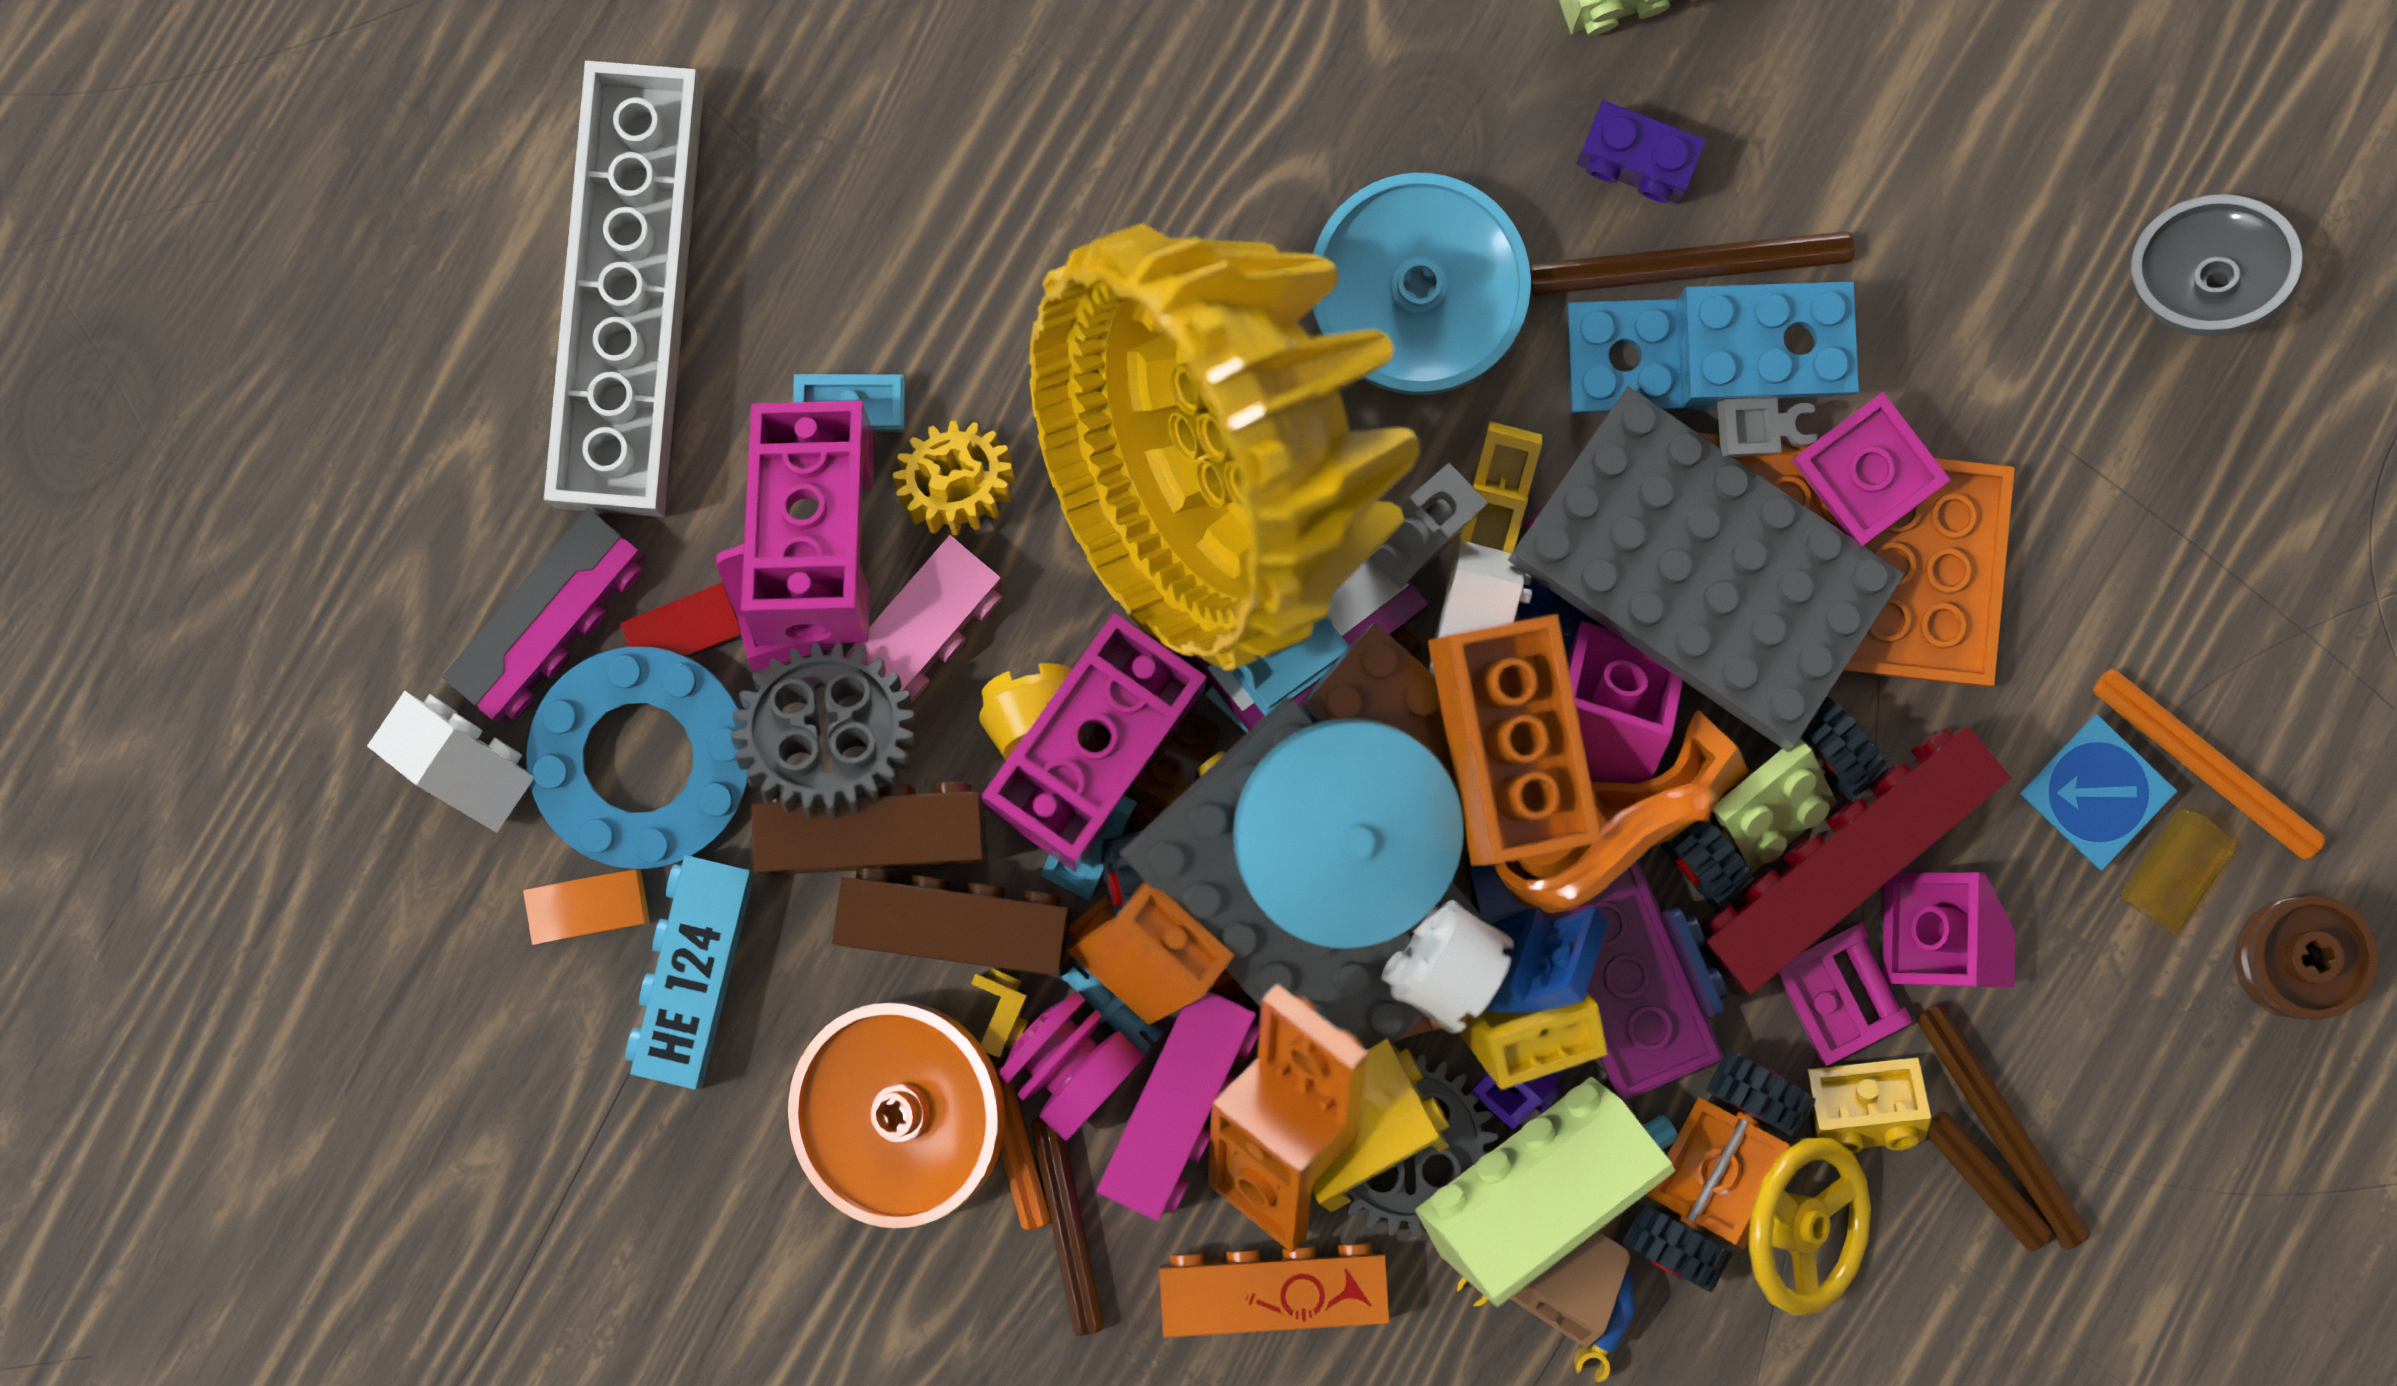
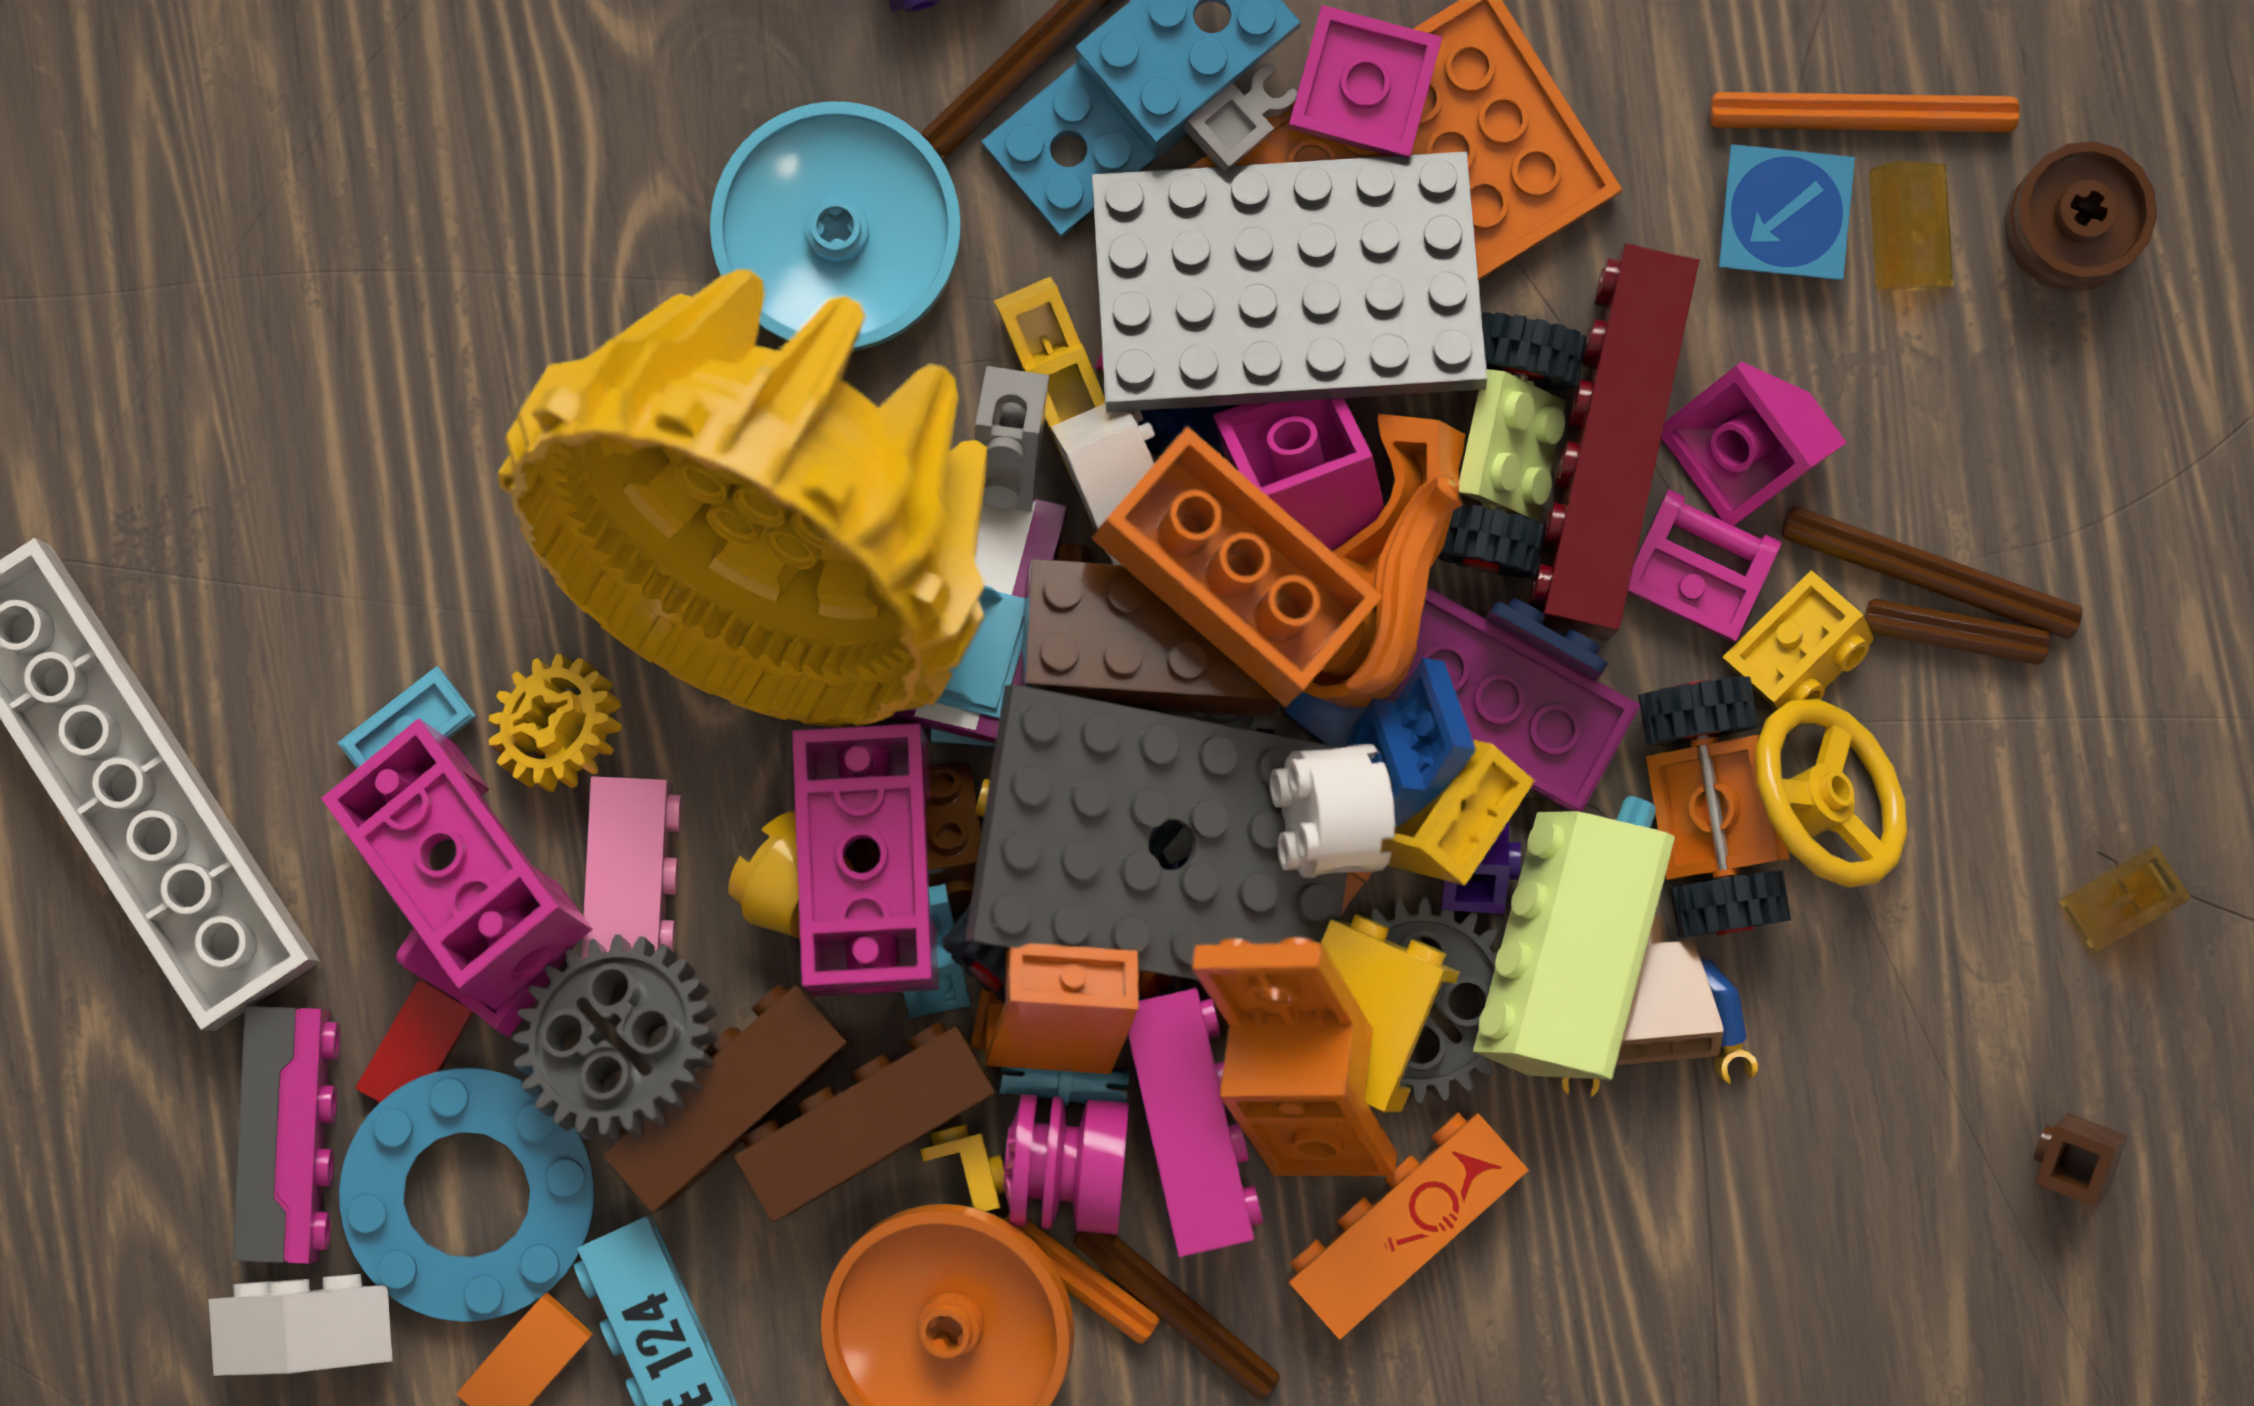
camera: 35 degrees left, 0 degrees up
(1348, 833) = (1153, 764): medium azure dish -> none

